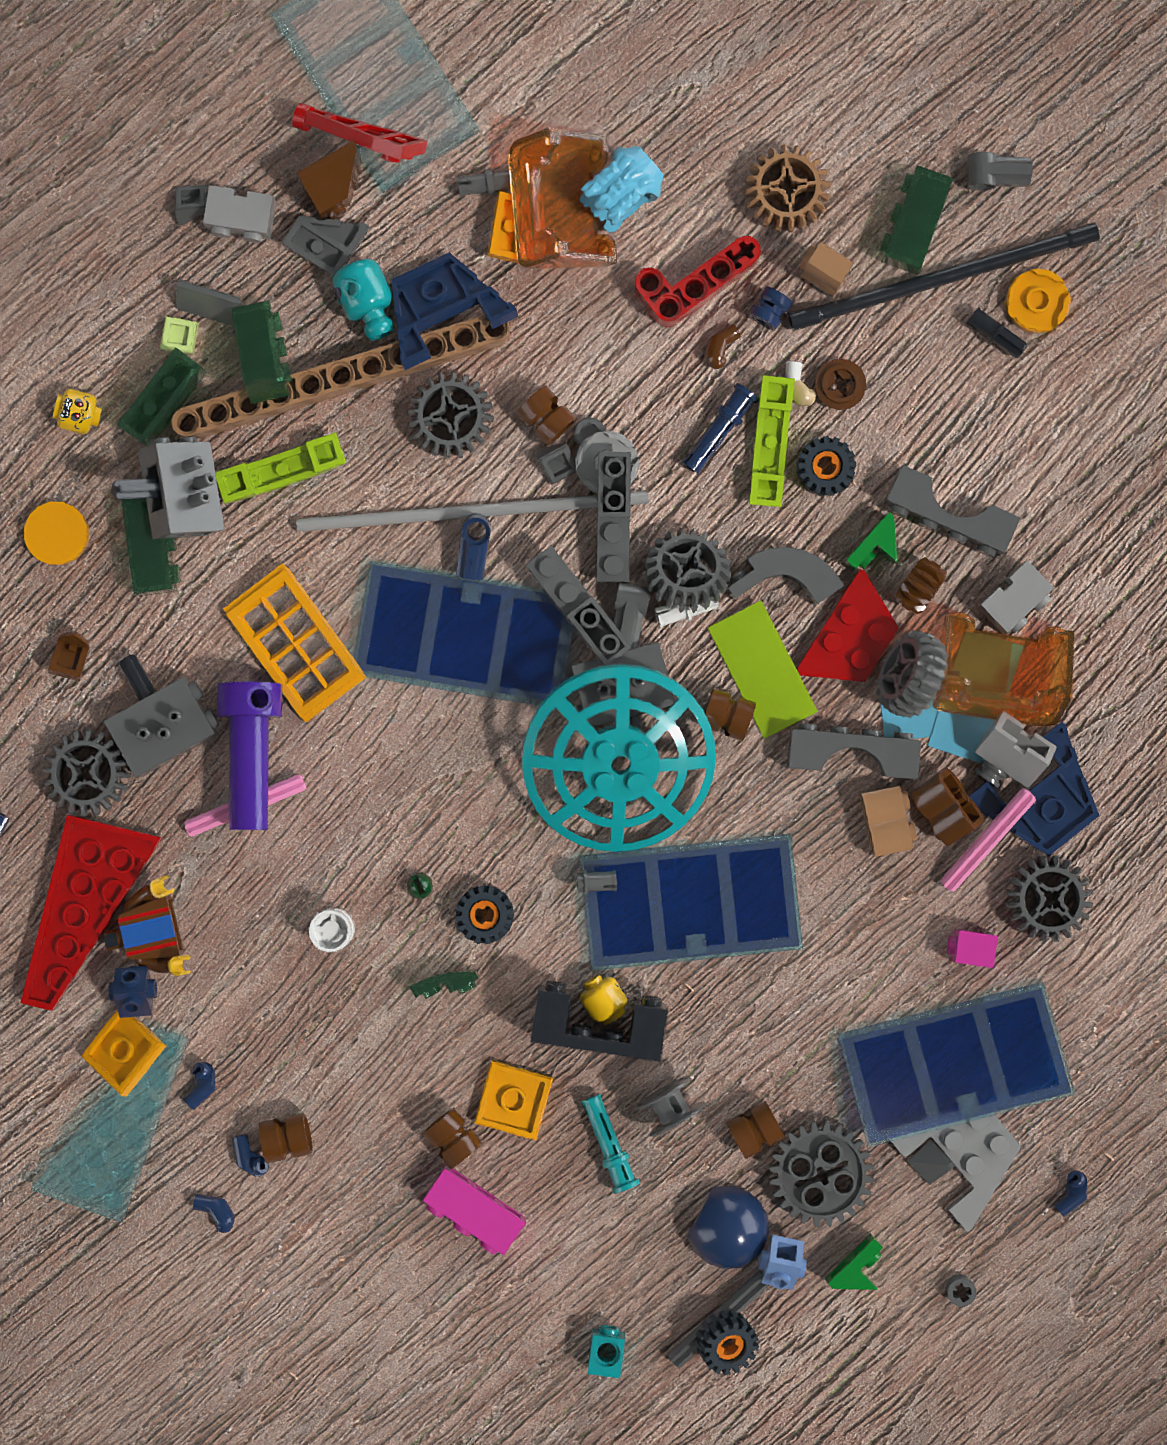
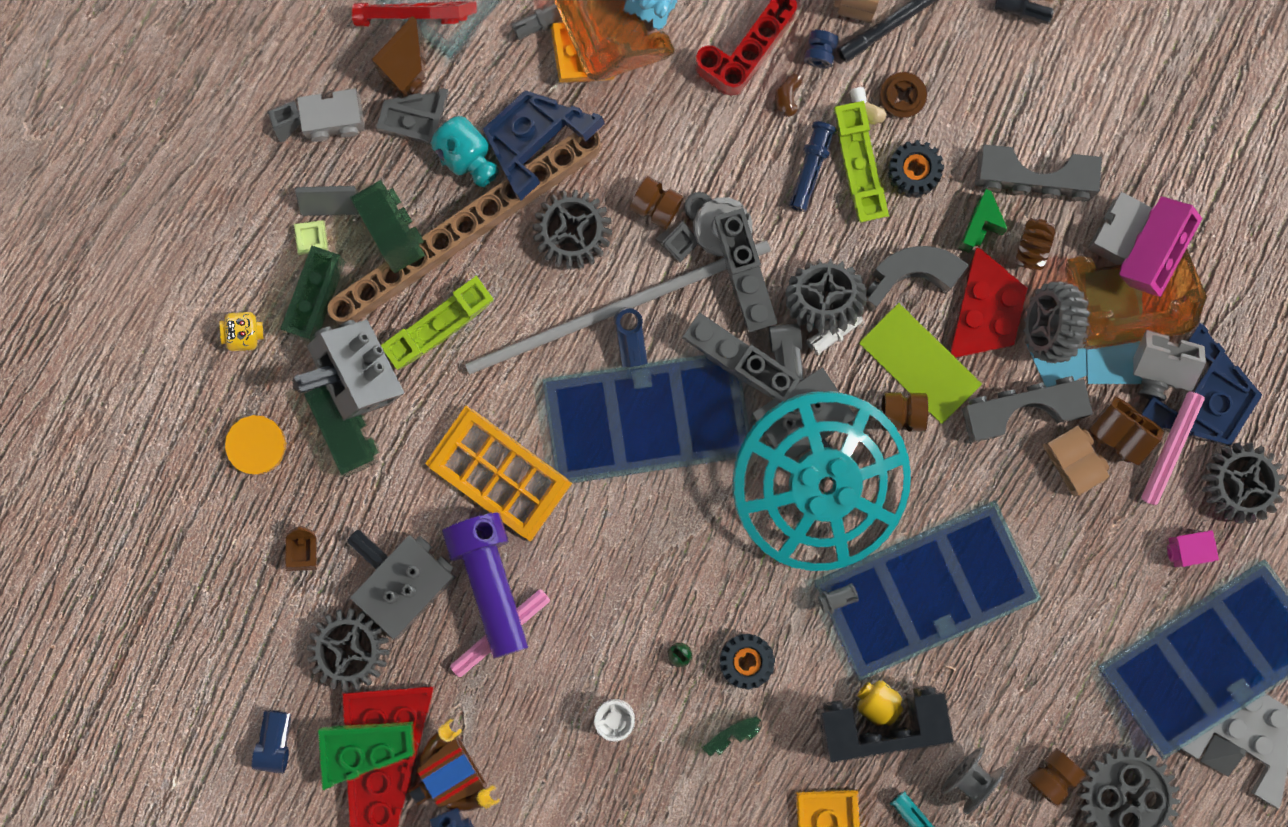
camera: 10 degrees left, 5 degrees down
(69, 876) = (361, 748): none -> green wing
(1045, 630) = (1160, 246): none -> dark pink brick

